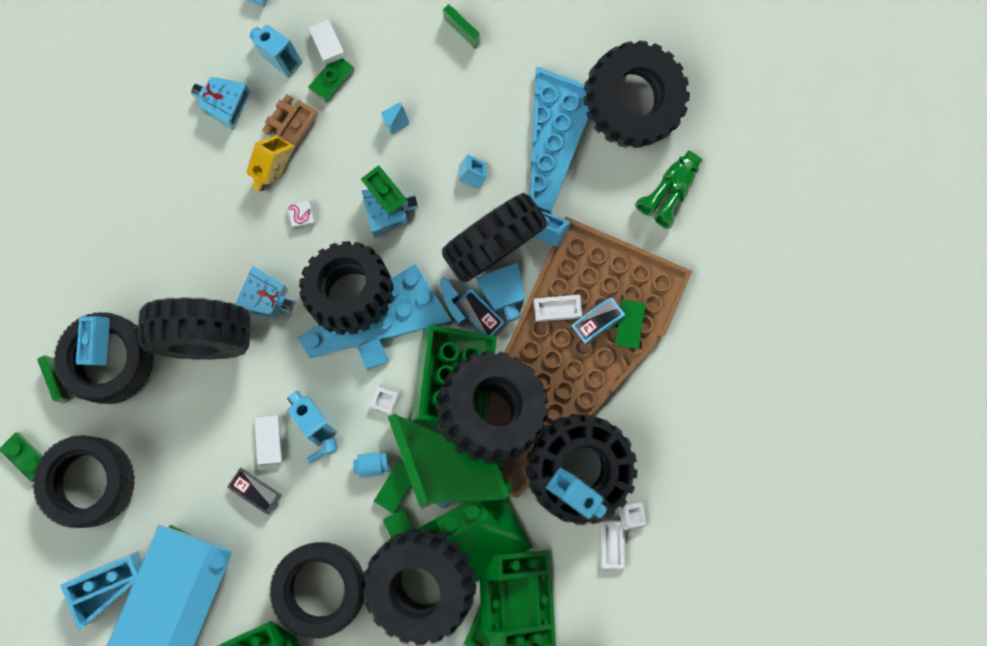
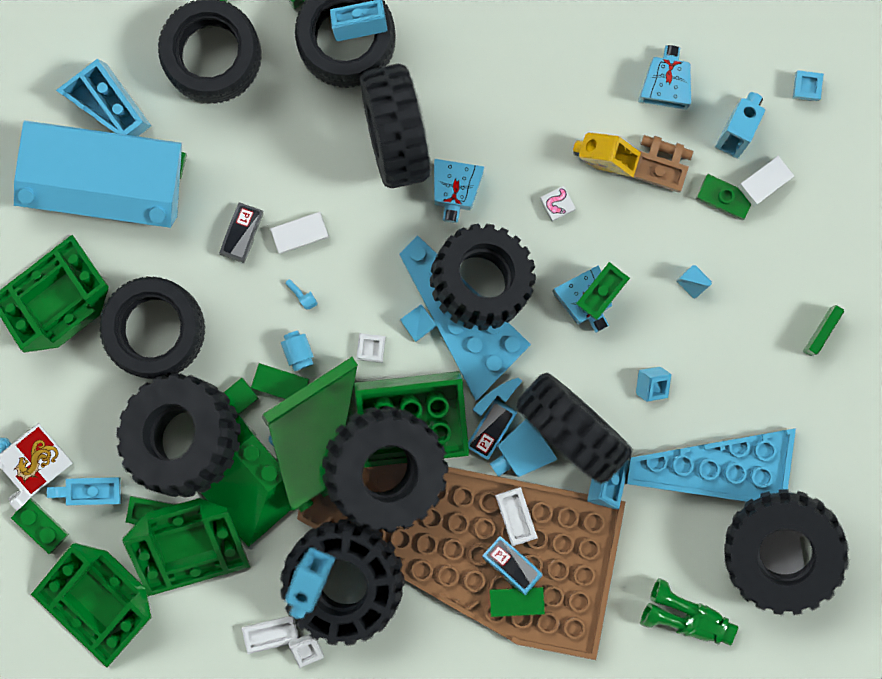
camera: 80 degrees right, 5 degrees up
(310, 418) = (326, 280): medium azure torso -> none

